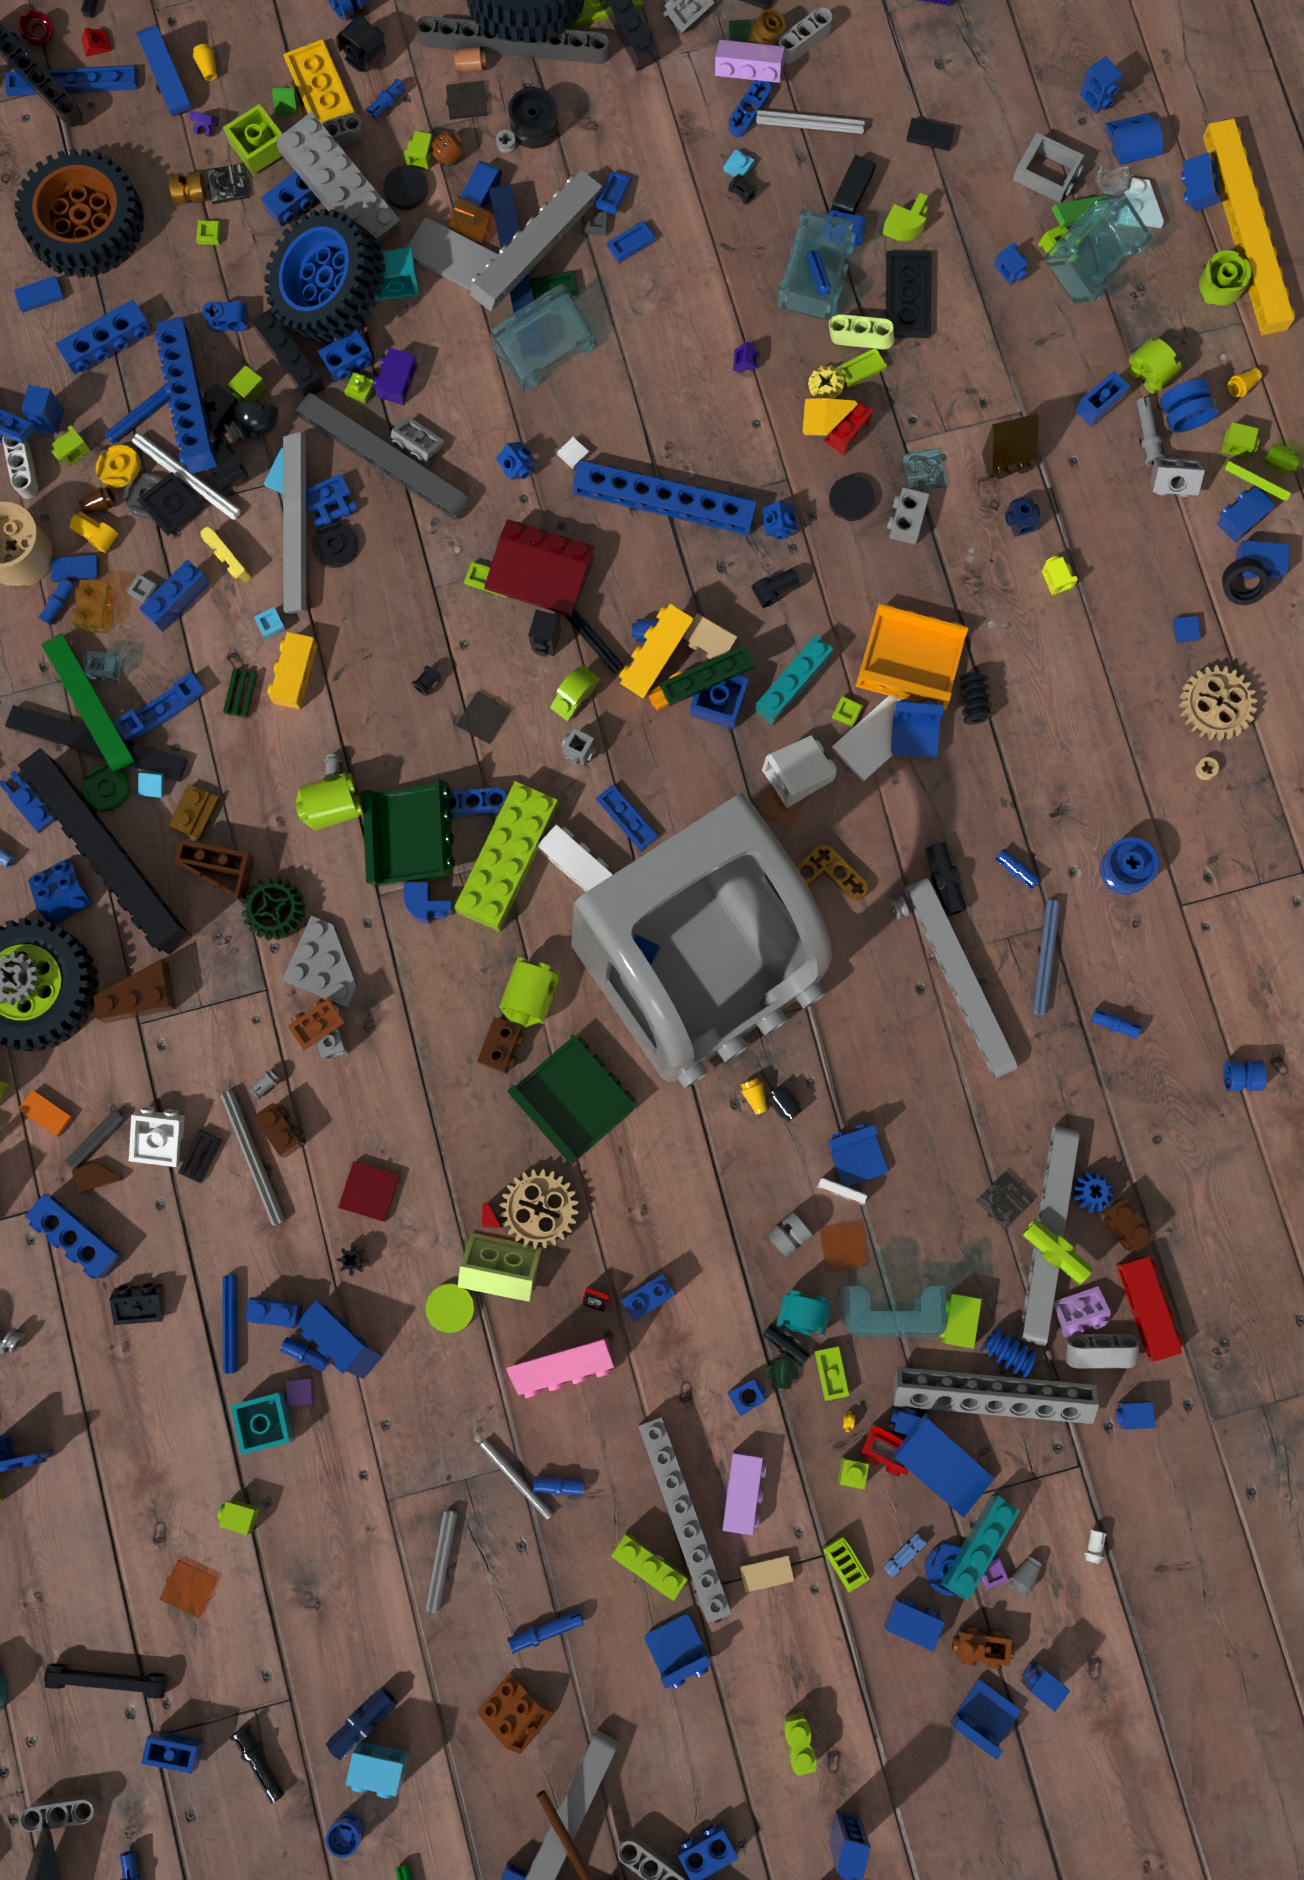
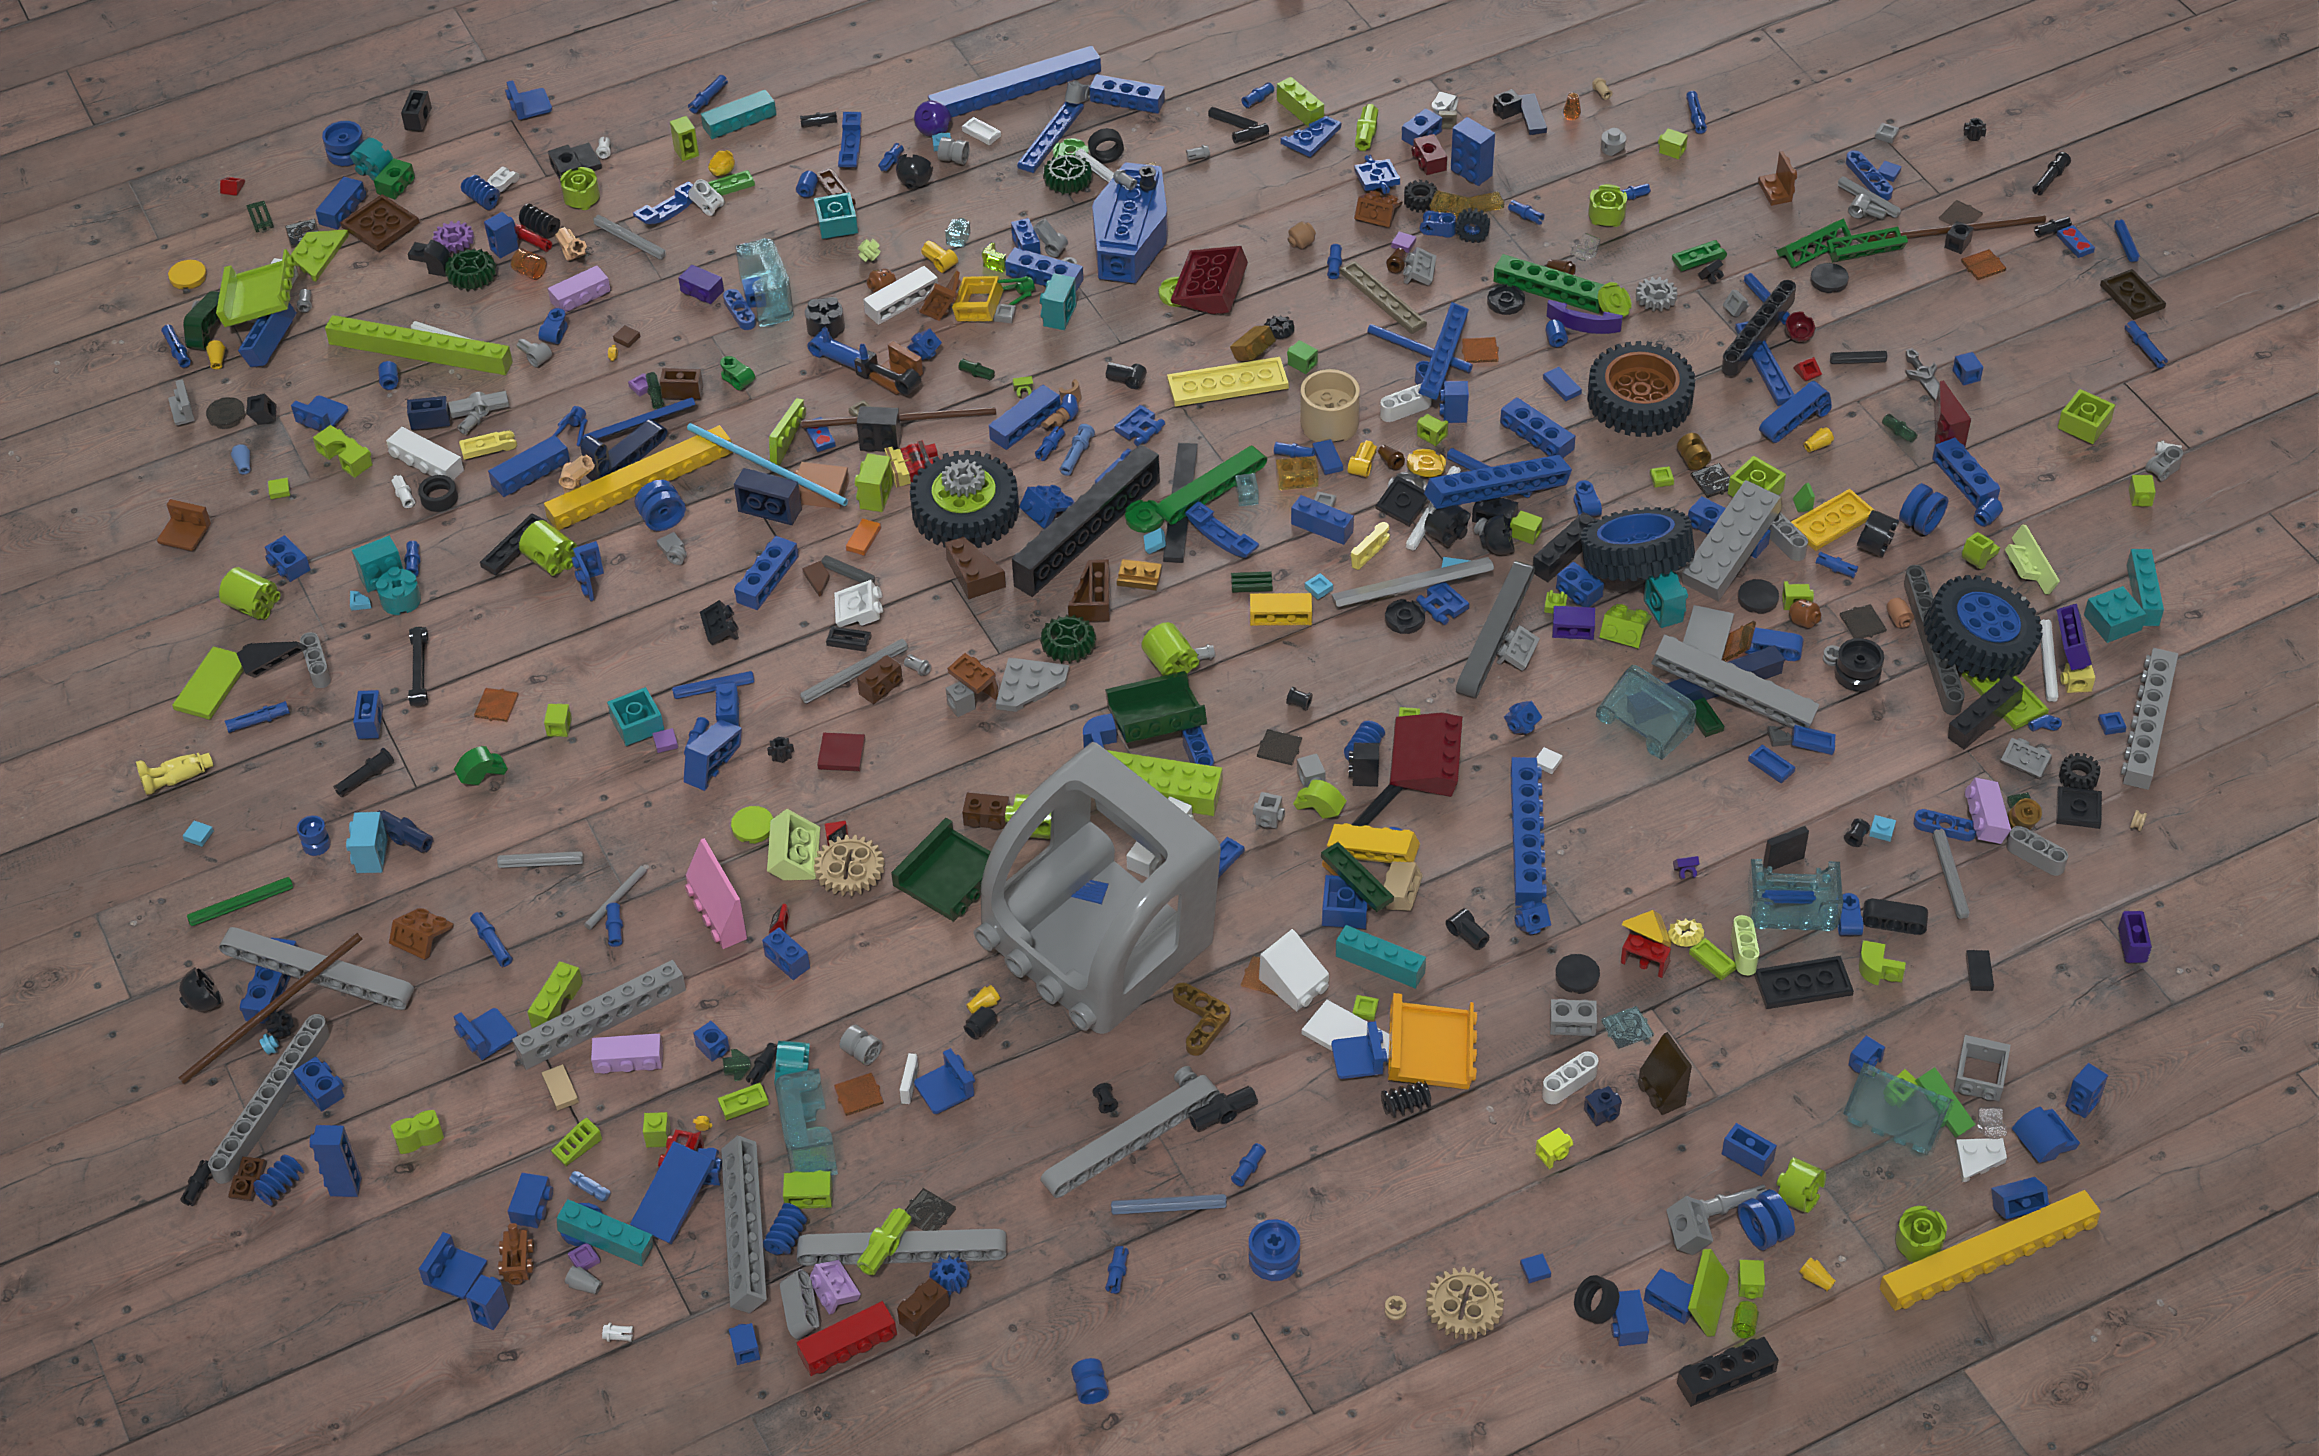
camera: 75 degrees right, 30 degrees down
(203, 120) = (1761, 450): dark purple tile -> none
(287, 1619) = (476, 763): none -> green brick
(412, 324) = (1624, 625): none -> lime bracket
(506, 628) = (1366, 733): none -> blue piece
(533, 692) = (1310, 769): none -> light grey brick
(756, 257) = (1786, 848): none -> black tile
(908, 993) = (1105, 1098): none -> black bush
(980, 548) = (1570, 1077): none -> white beam

